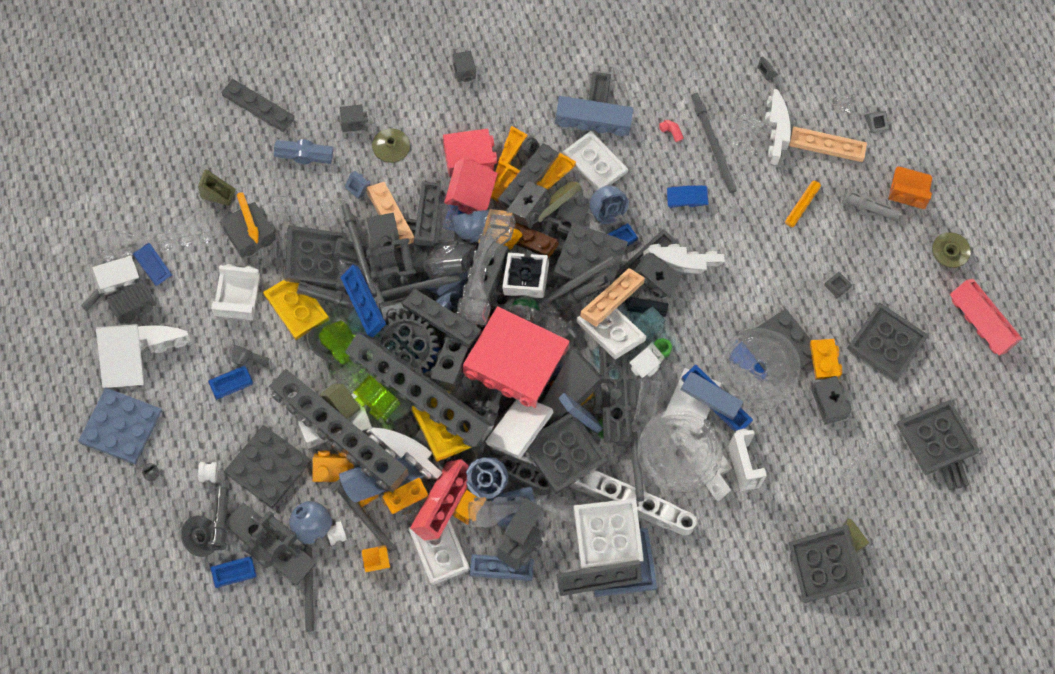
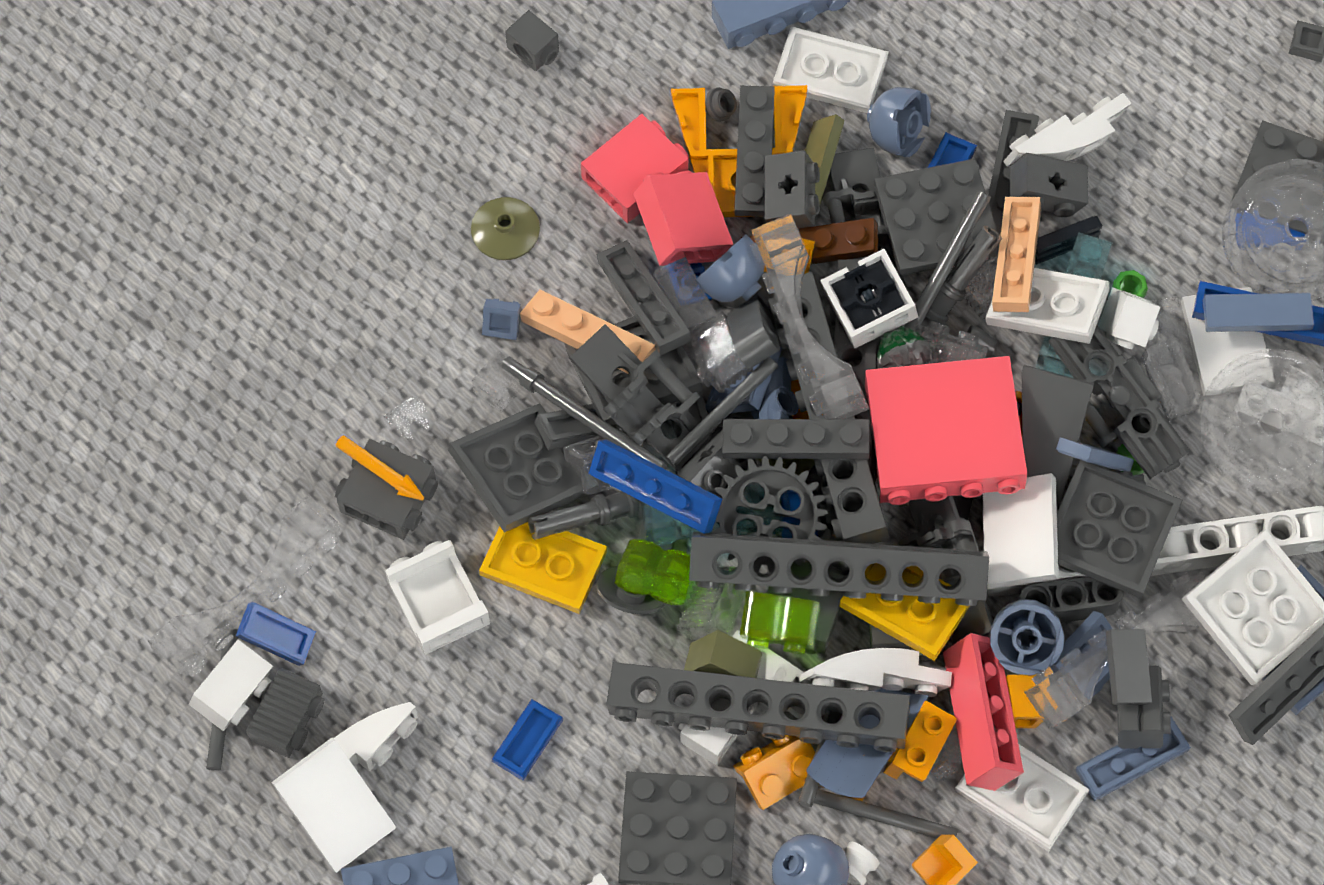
camera: 25 degrees left, 0 degrees up
(215, 189) = (289, 458): olive slope -> none
(242, 355) = (516, 687): dark grey bar -> none
(258, 105) = (255, 289): dark grey plate -> none
(303, 151) = (381, 318): sand blue piece -> none
(353, 118) = (420, 220): dark grey brick -> none
(637, 468) = (1225, 486): dark grey bar -> none
(687, 196) = (1004, 39): blue slope -> none

